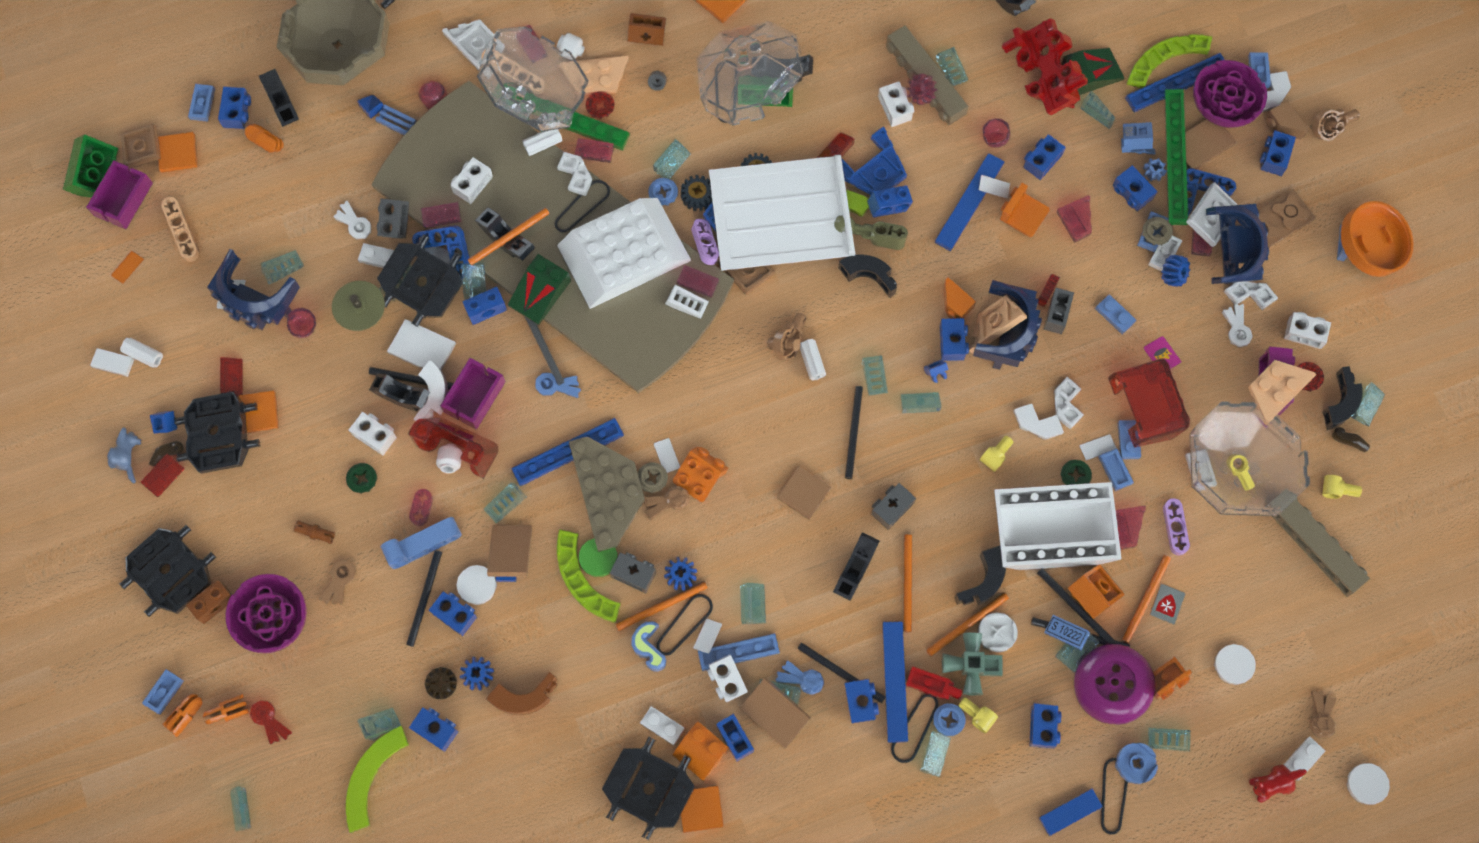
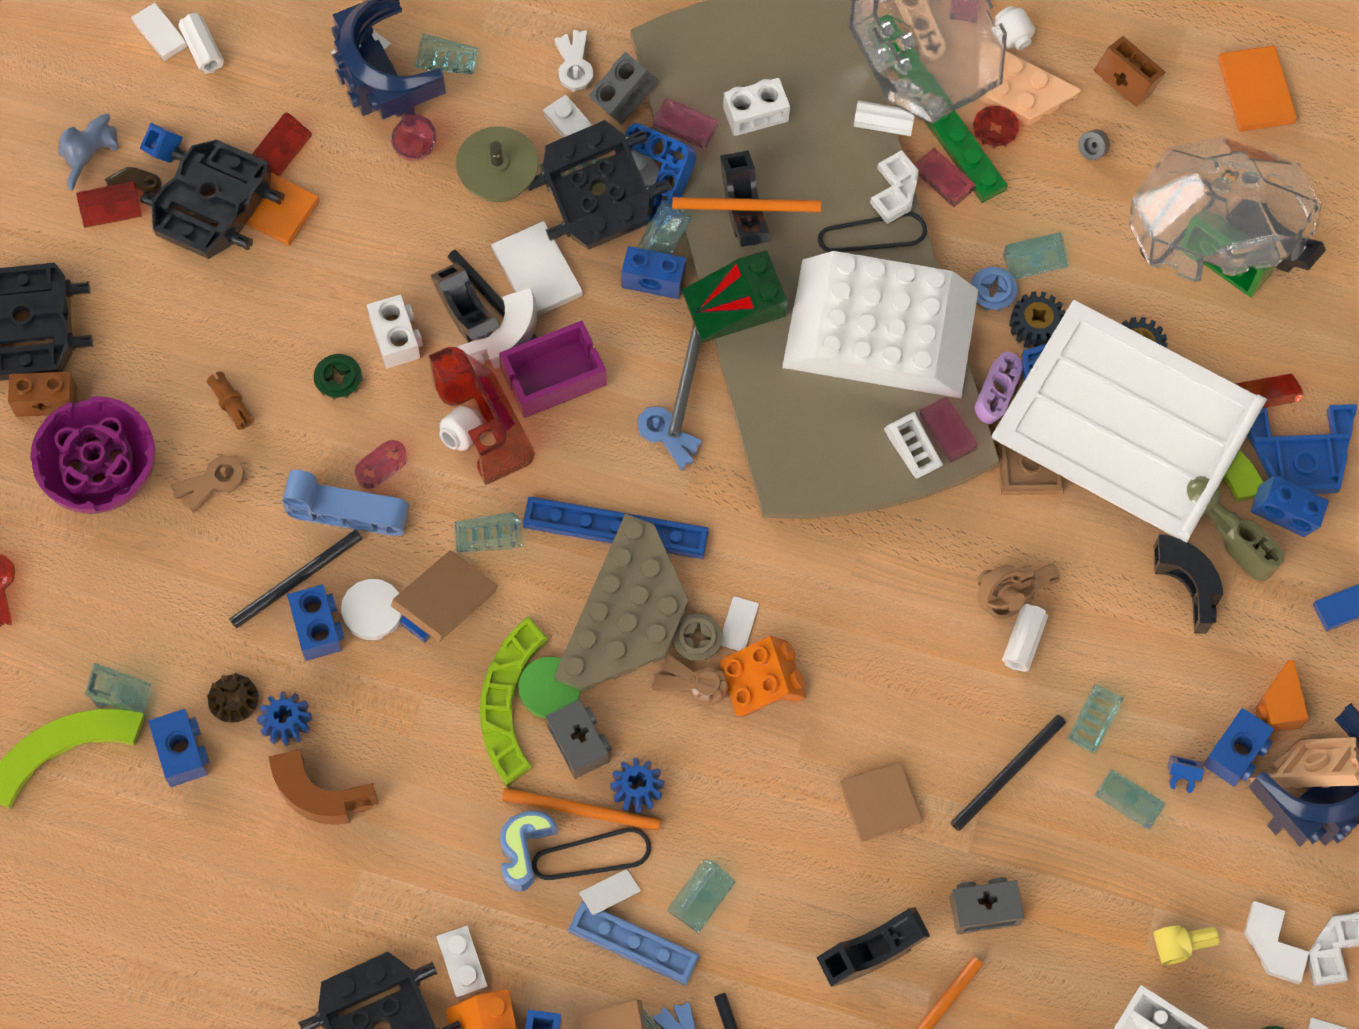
camera: 35 degrees right, 5 degrees down
(731, 676) = (599, 966): white brick -> none

